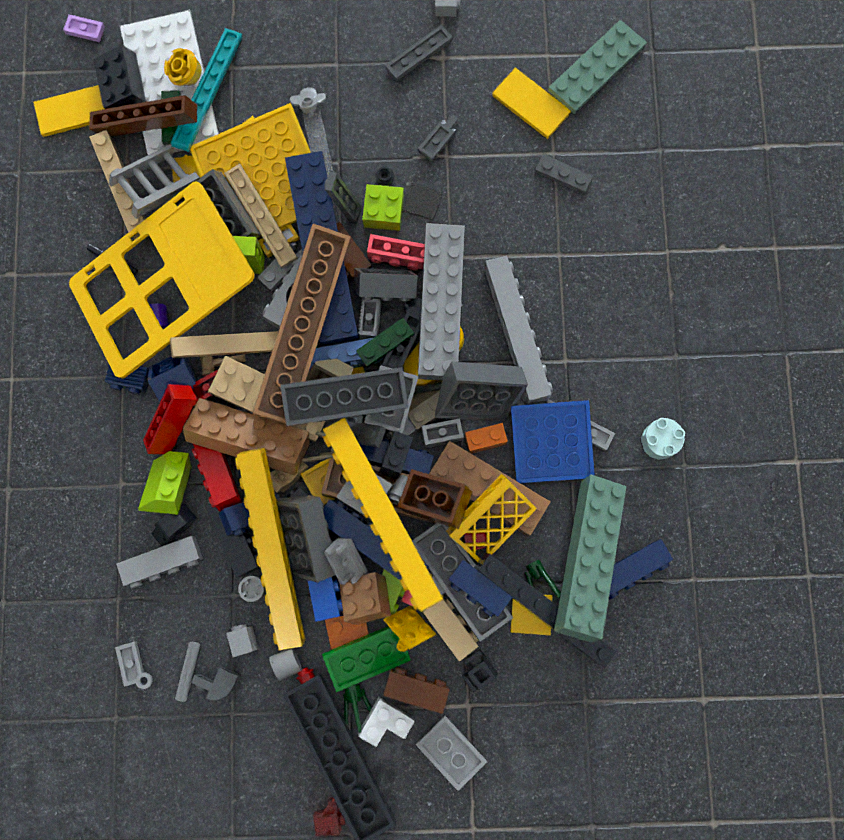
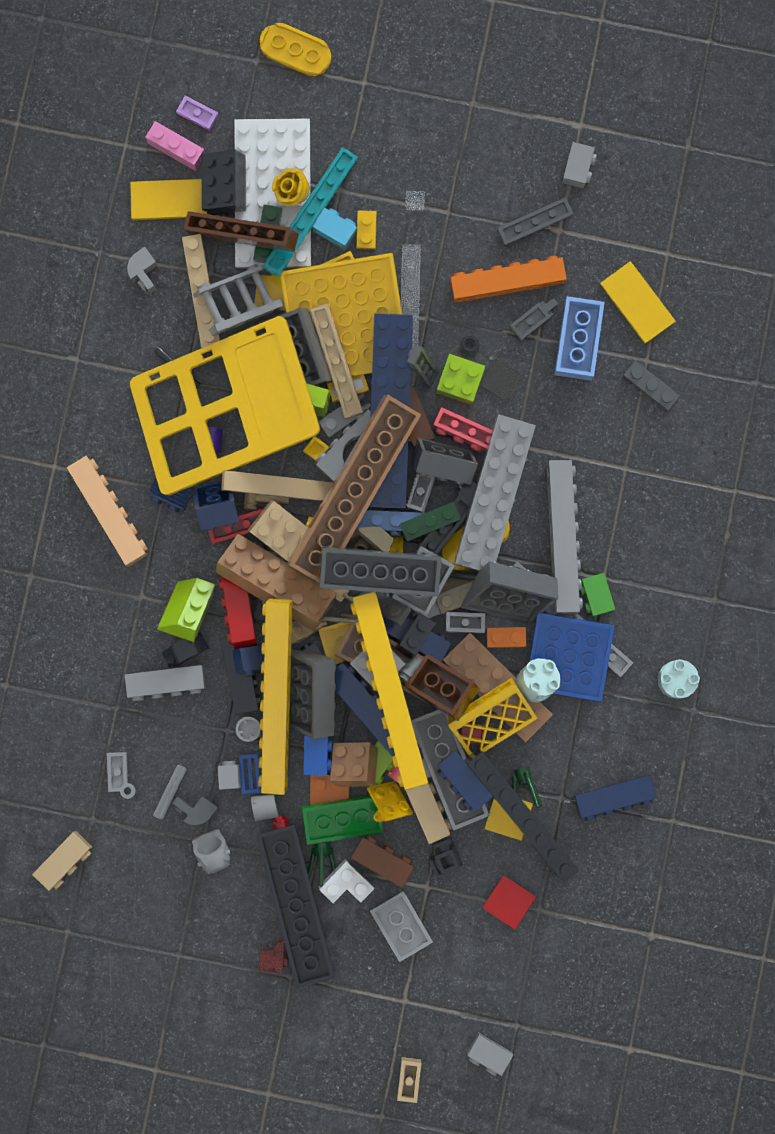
camera: 10 degrees right, 5 degrees up
(57, 174) = (139, 266): none -> light grey brick
(67, 60) = (175, 146): none -> bright pink brick
(69, 408) = (107, 511): none -> light nougat brick
(91, 770) = (63, 861): none -> tan brick
(169, 419) = (205, 548): red brick -> none
(234, 99) = (335, 228): none -> medium azure brick
(241, 723) = (211, 851): none -> light grey helmet
(259, 303) = (315, 448): none -> yellow tile
(264, 95) = (366, 230): none -> yellow piece
(264, 631) = (242, 774): none -> blue tile
(303, 60) = (415, 201): none -> clear plate
(307, 100) = (410, 247): light grey plate -> none
(345, 560) = (344, 725): light grey hinge -> none
(406, 108) = (508, 279): none -> orange brick
(485, 144) = (579, 338): none -> light blue brick
(528, 470) = (538, 680): none -> light aqua brick
(553, 700) = (509, 902): none -> red tile
(563, 377) = (597, 595): none -> bright green brick
(590, 559) = (577, 777): sand green brick -> none
(597, 66) = (714, 279): sand green plate -> none

